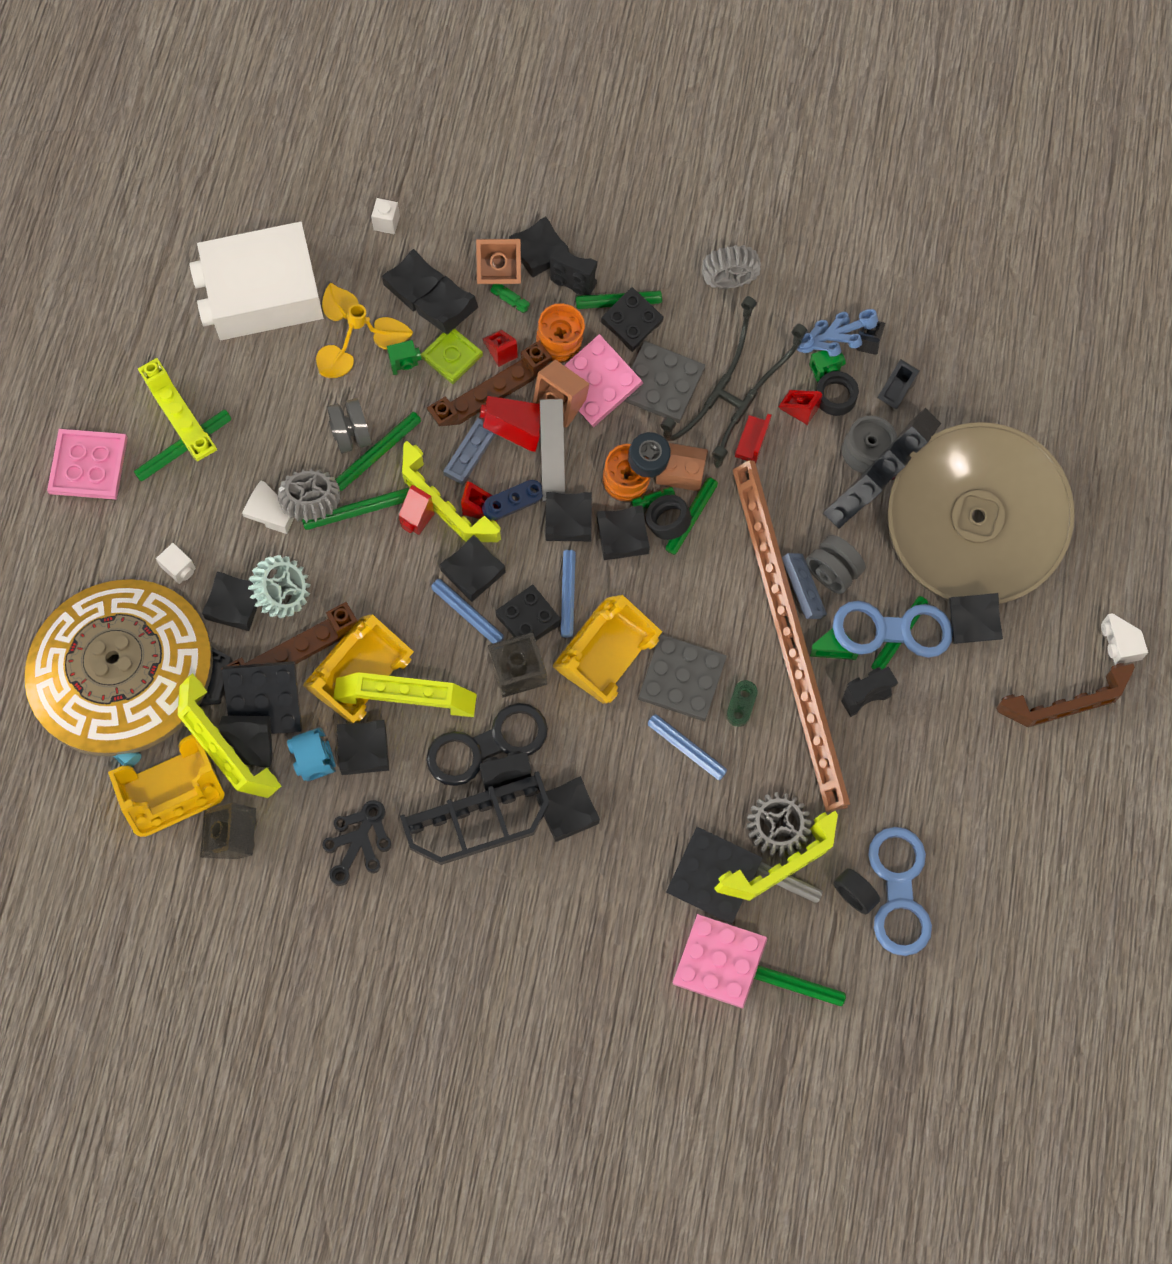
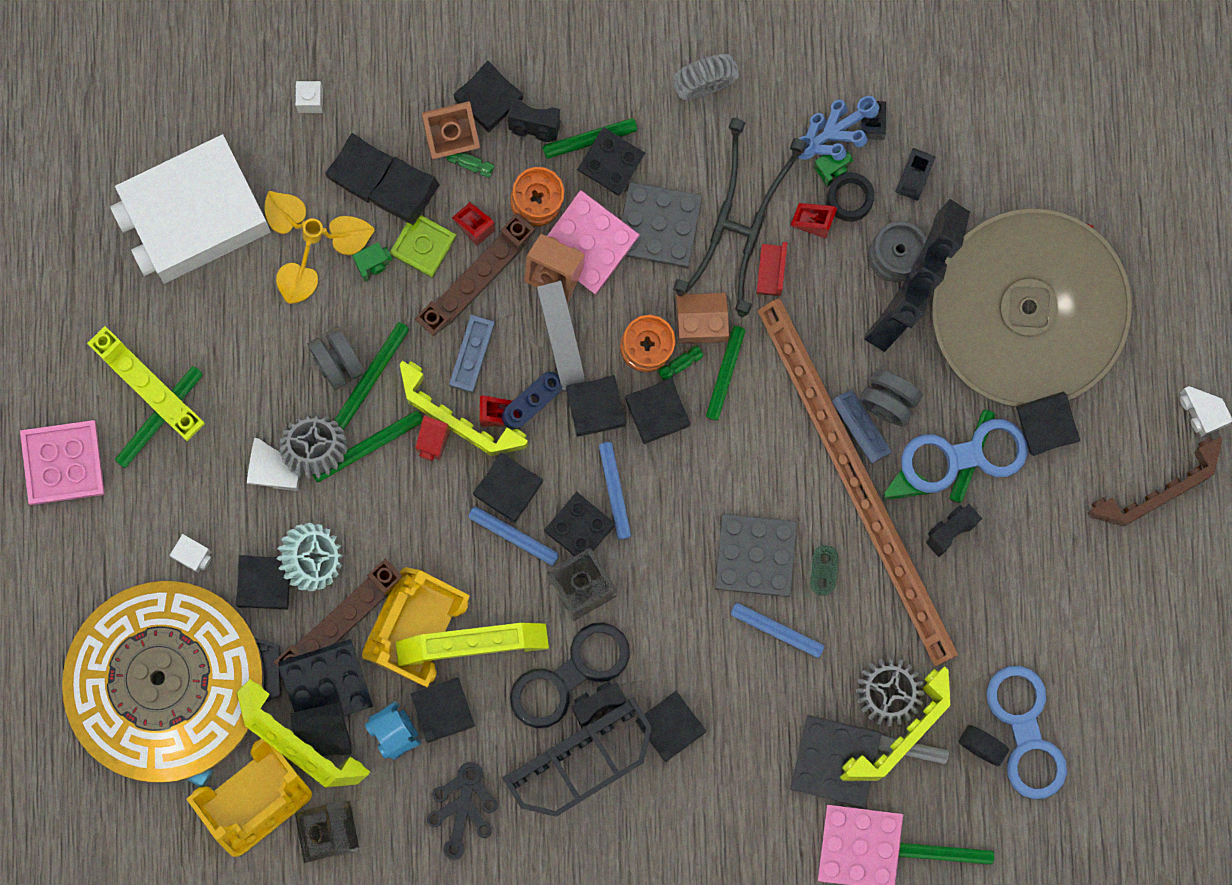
camera: 15 degrees left, 10 degrees up
(513, 420) = (511, 311): red slope -> none
(607, 647) = (668, 543): yellow windscreen -> none
(653, 447) = (676, 320): black wheel -> none
(672, 530) = (689, 372): black tyre -> none

